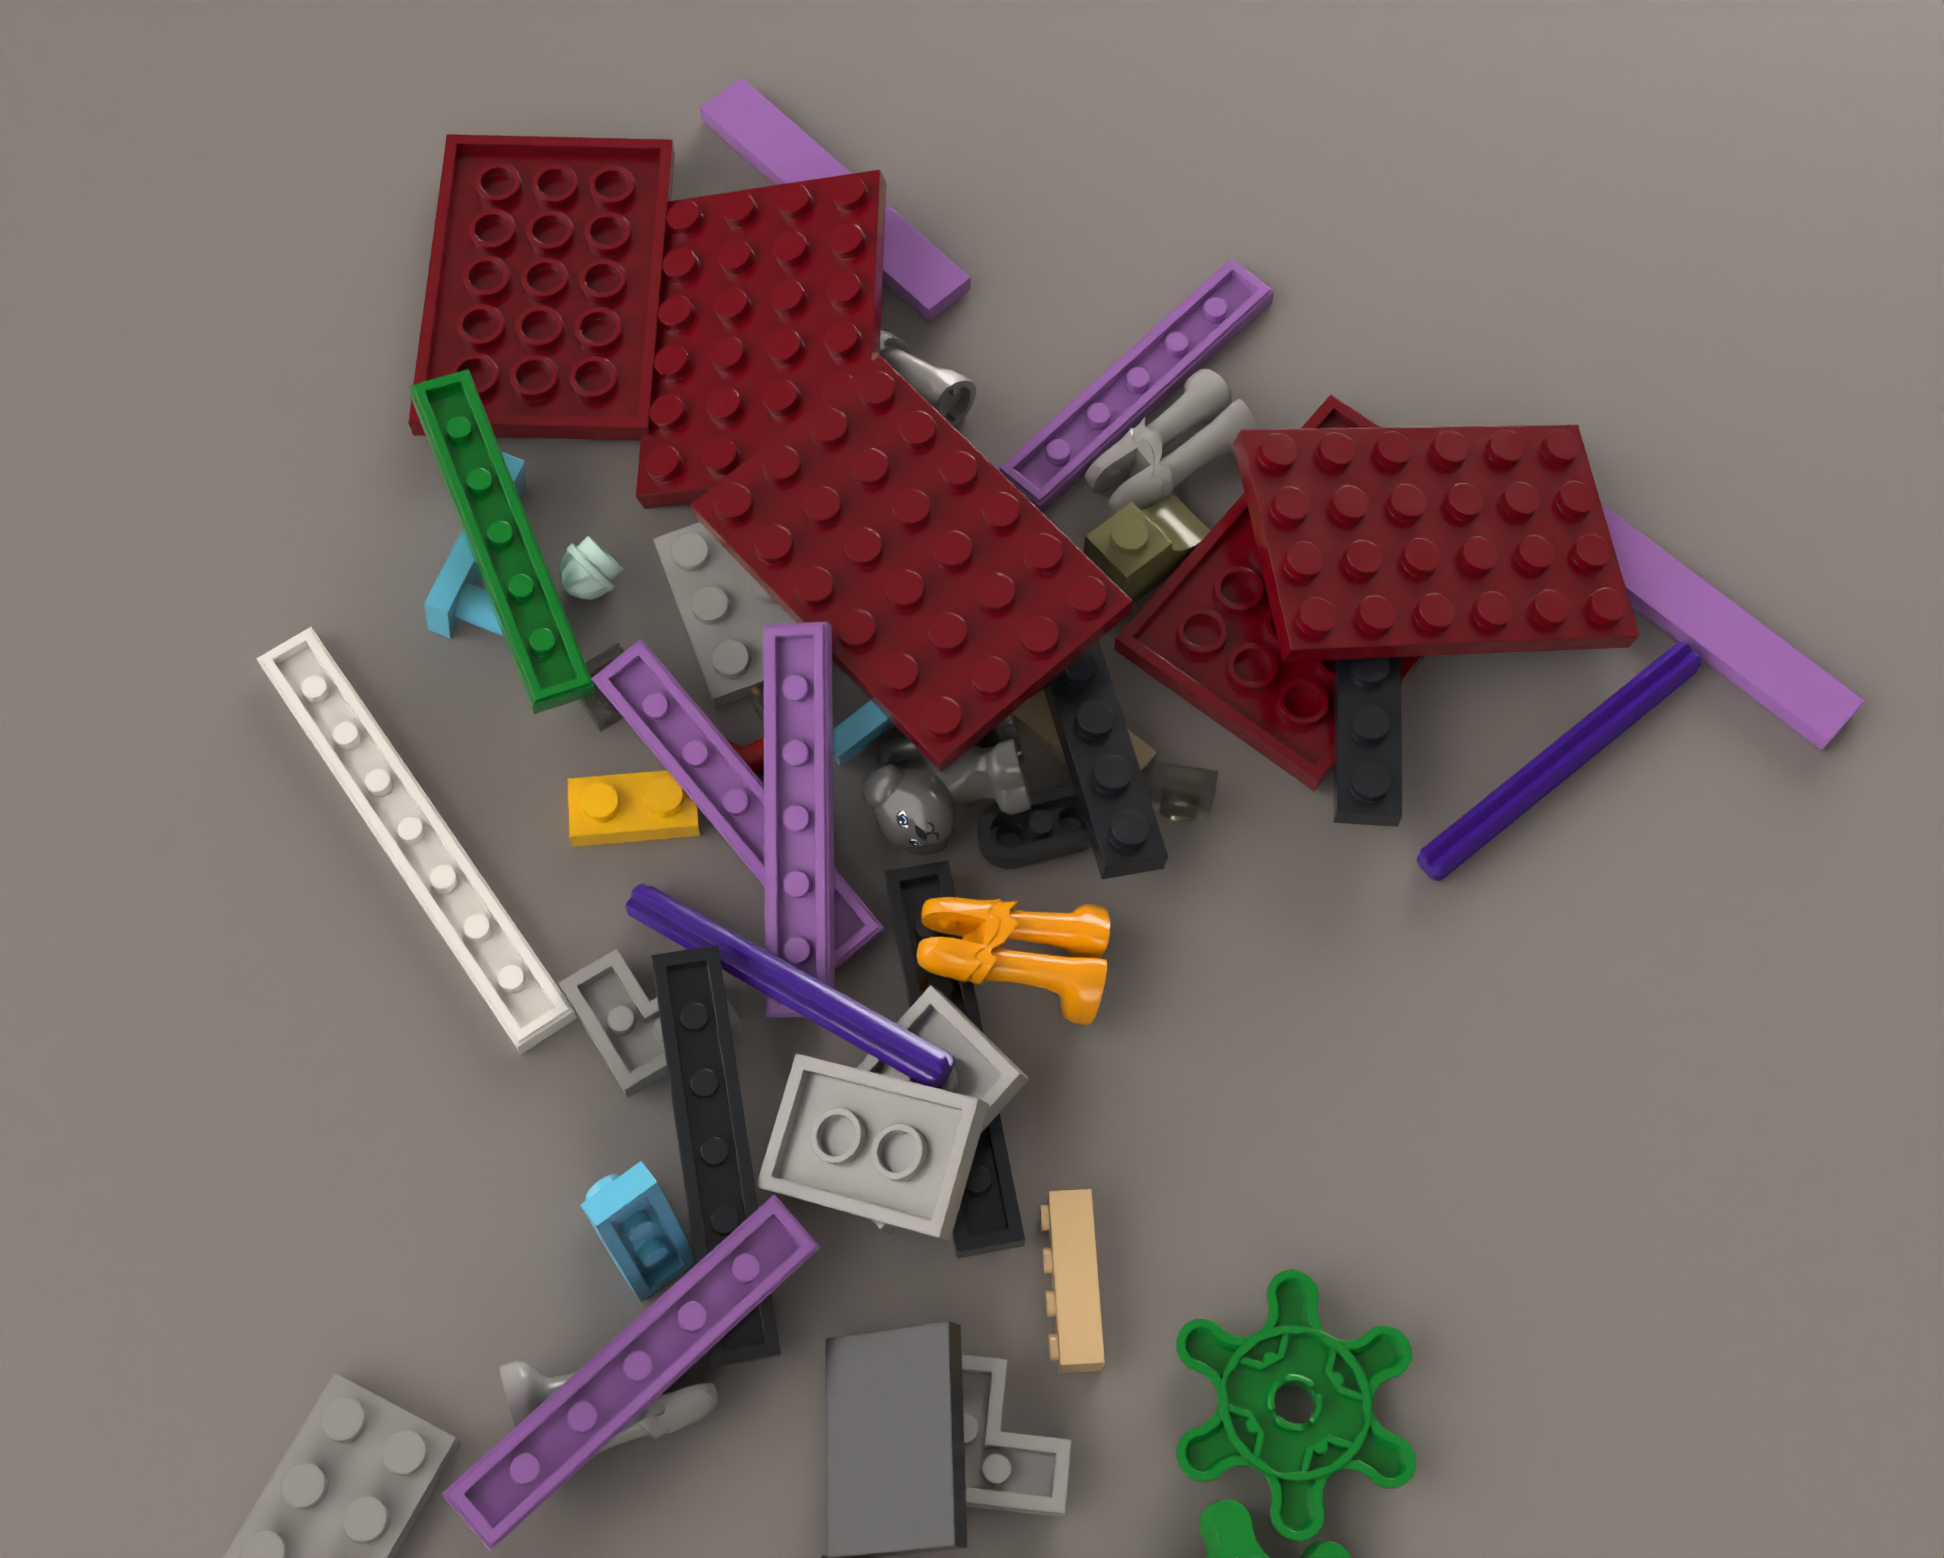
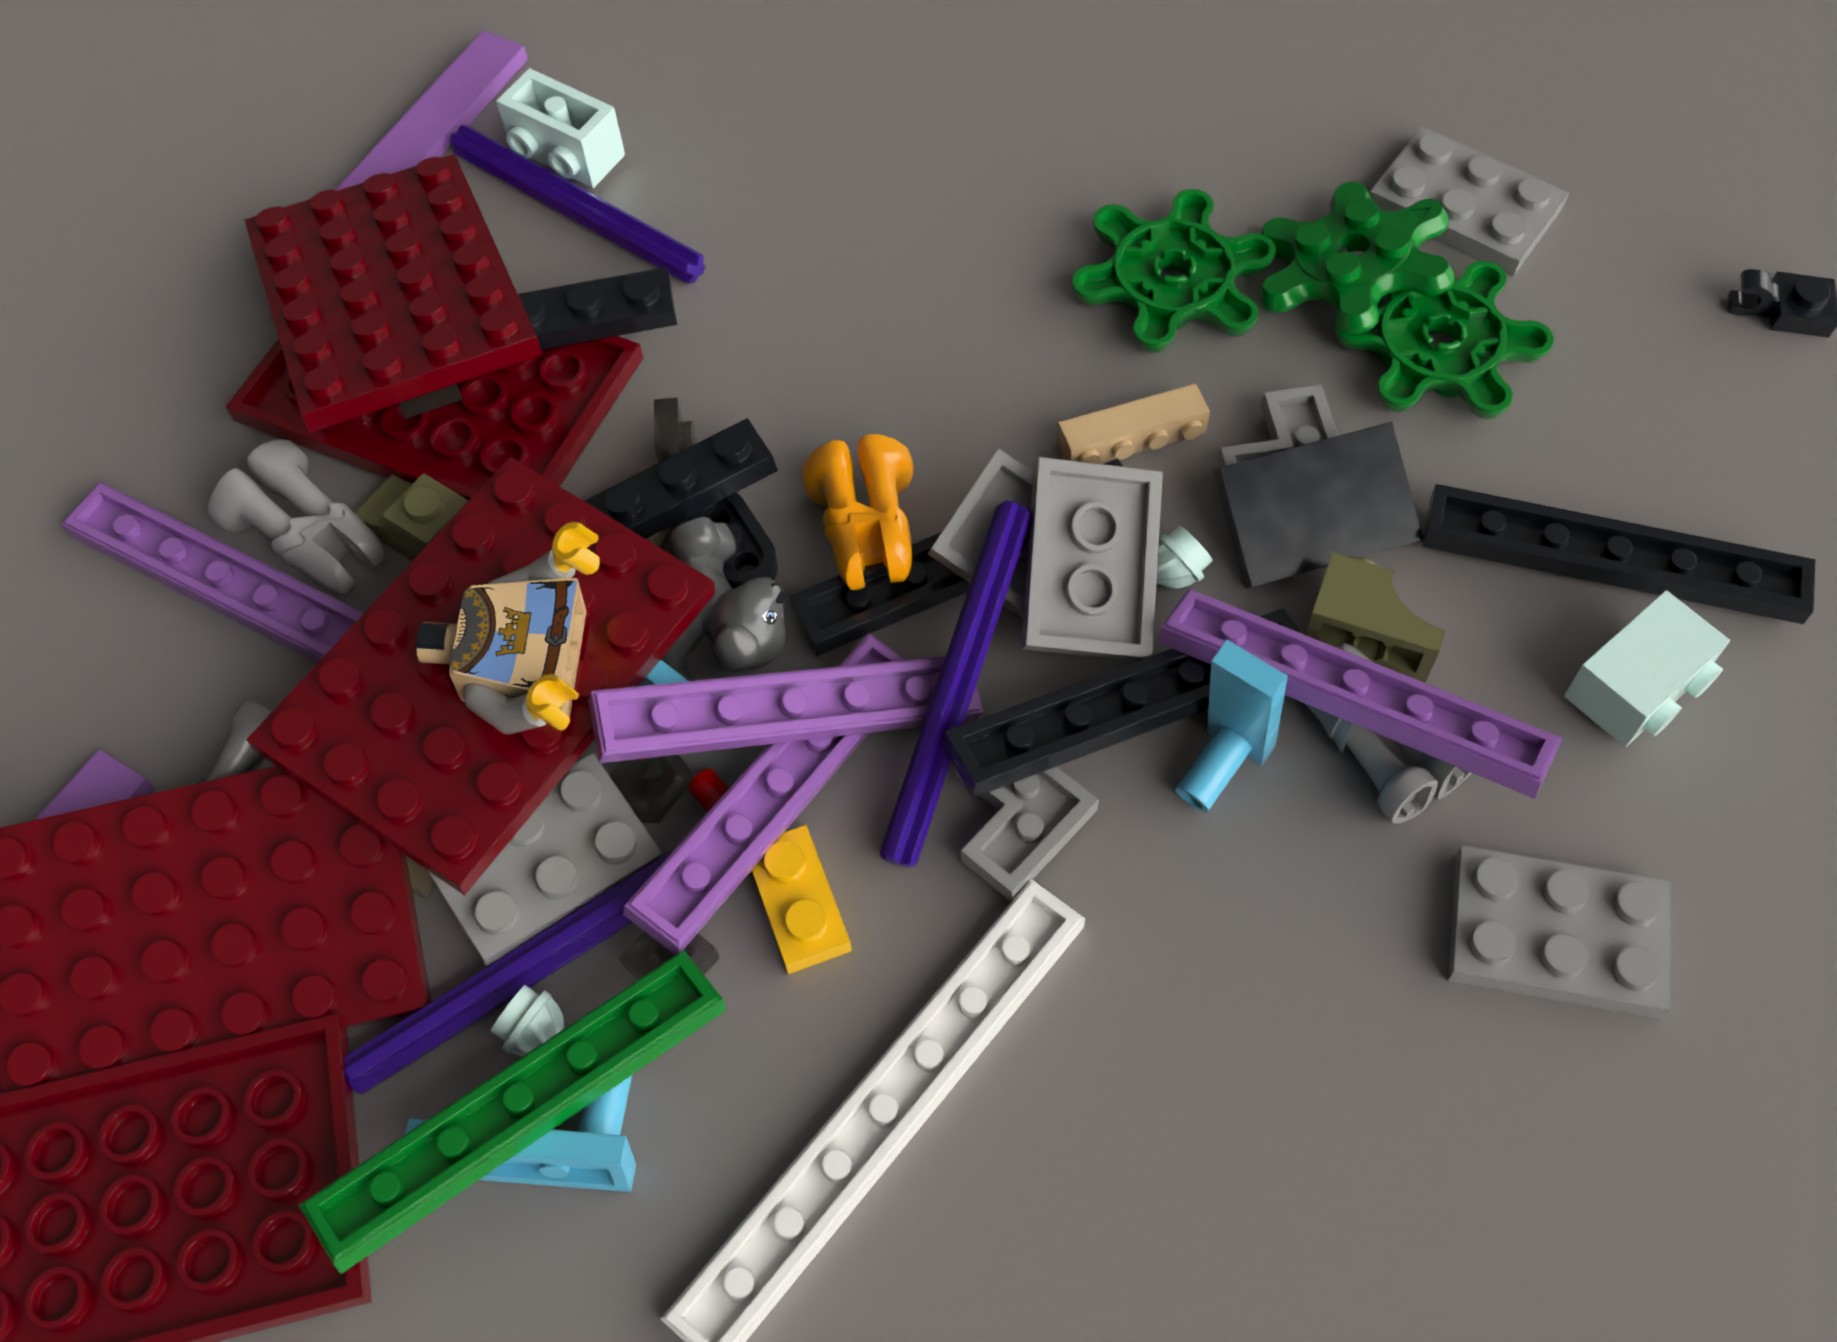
camera: 100 degrees left, 5 degrees down
(644, 566) = (493, 986): none -> dark purple axle
(746, 1435) = (1364, 611): none -> olive arch
(877, 561) = (519, 638): none -> torso
(880, 1268) = (1180, 559): none -> light aqua plate
(1657, 749) = (561, 128): none -> light aqua brick

